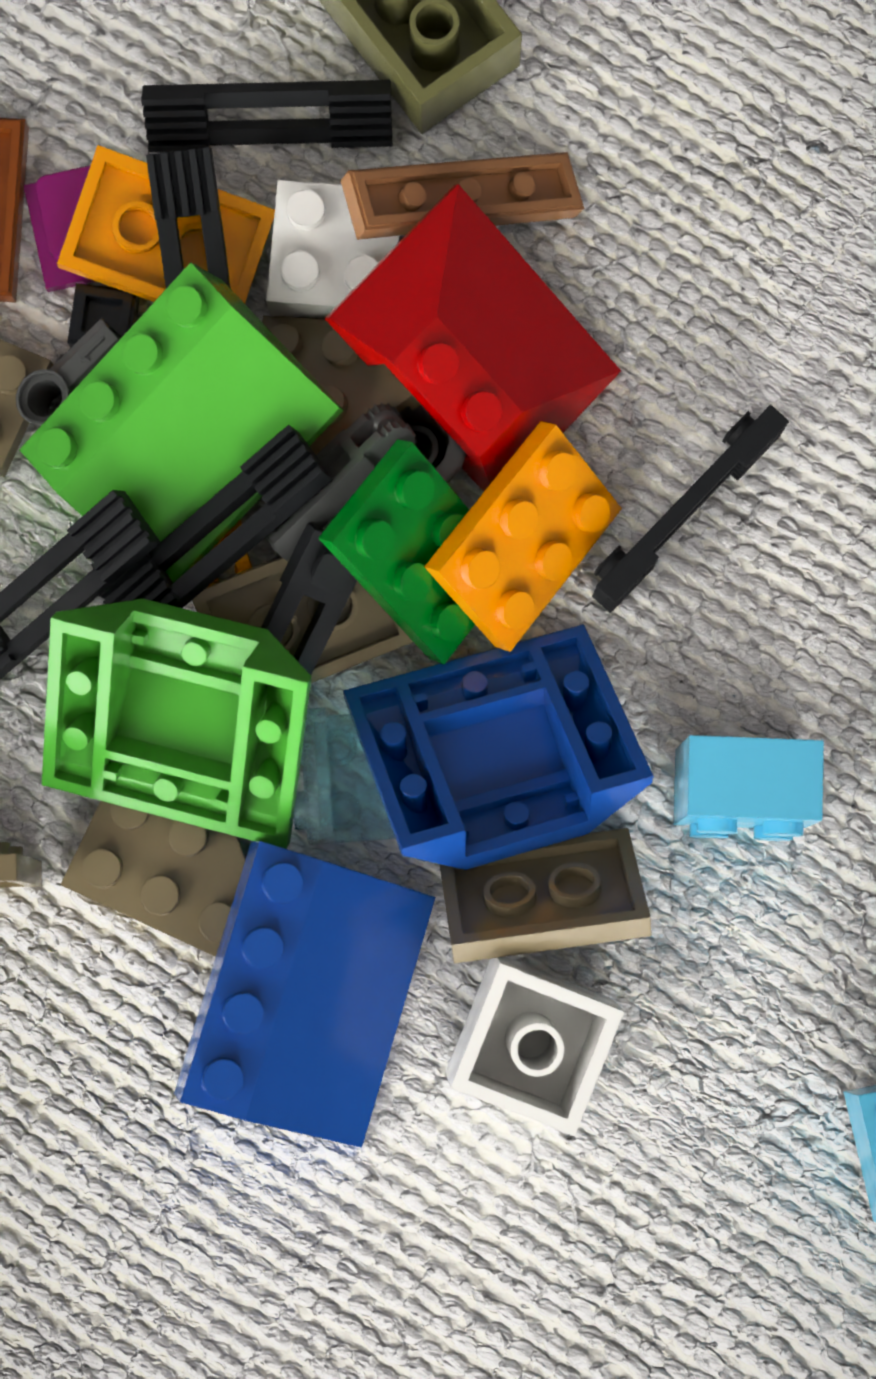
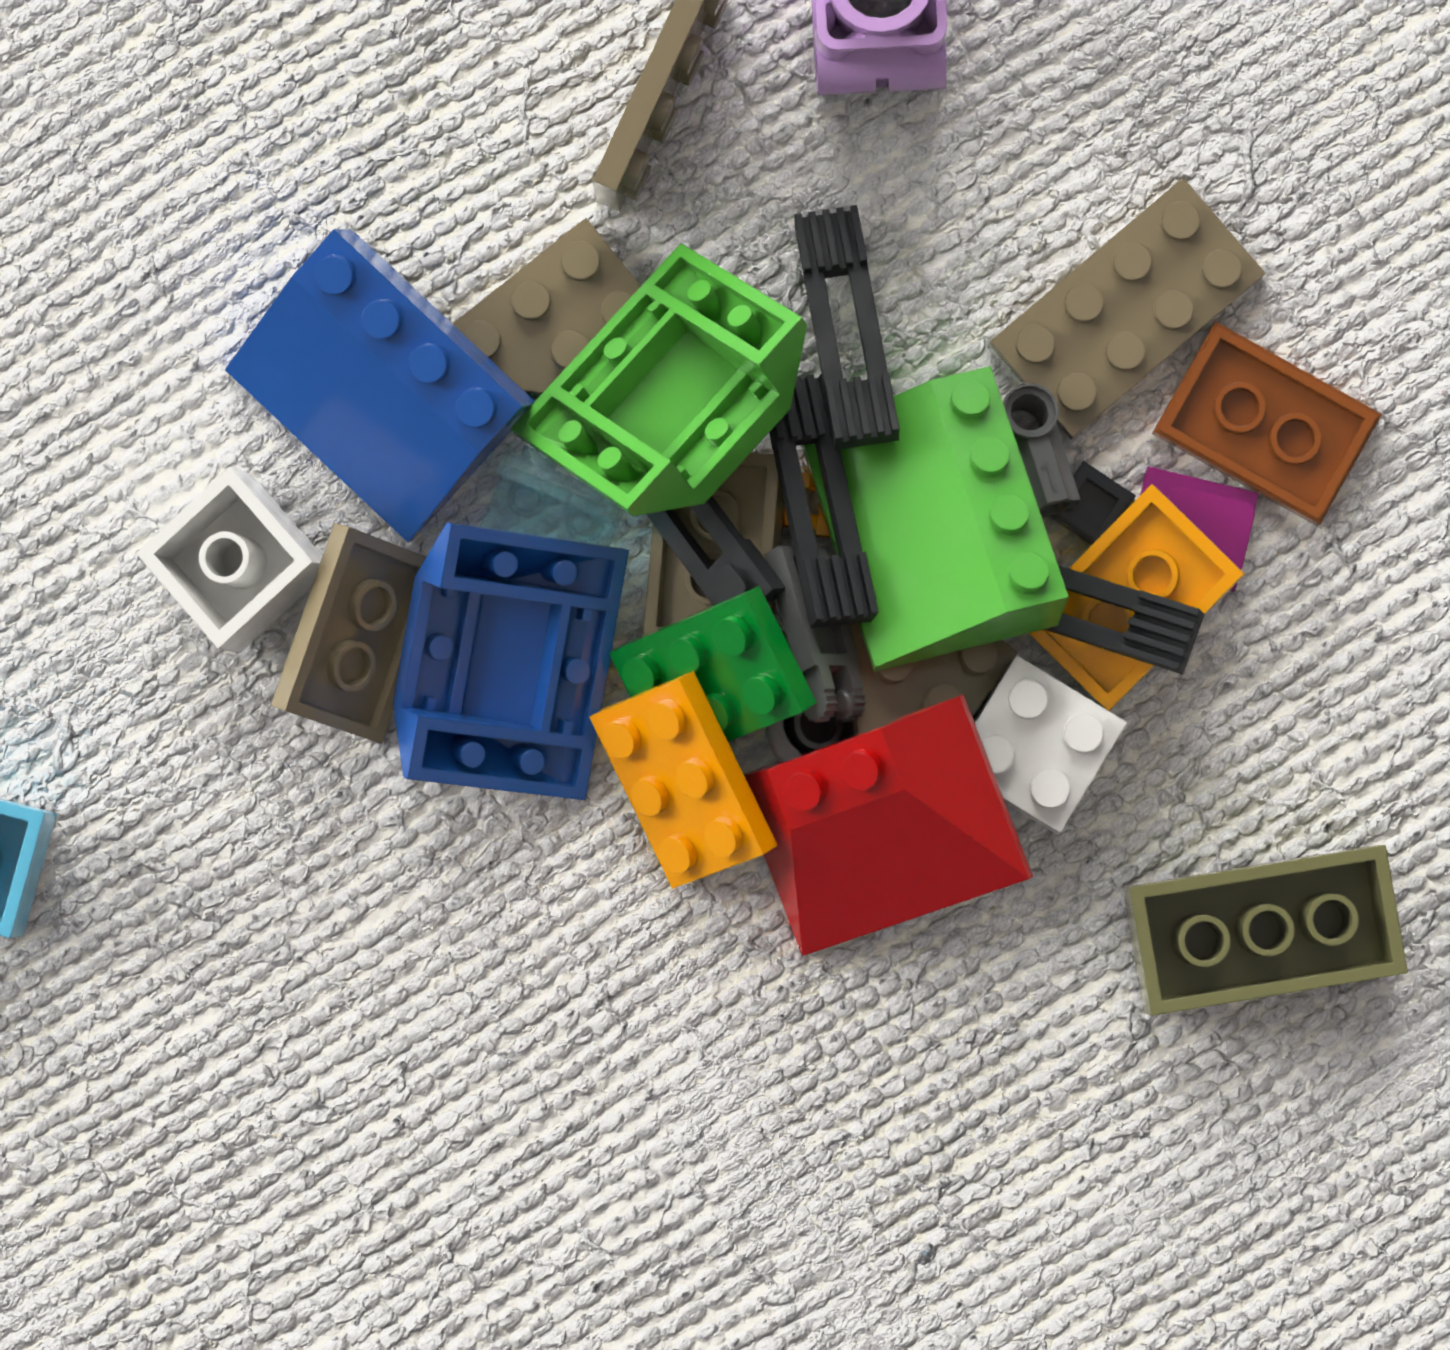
camera: 120 degrees right, 5 degrees up
(180, 121) = (1243, 669): black container -> none
(504, 188) = (1027, 912): medium nougat tile -> none
(748, 443) = (672, 1033): black container -> none
(748, 785) = (358, 861): medium azure brick -> none

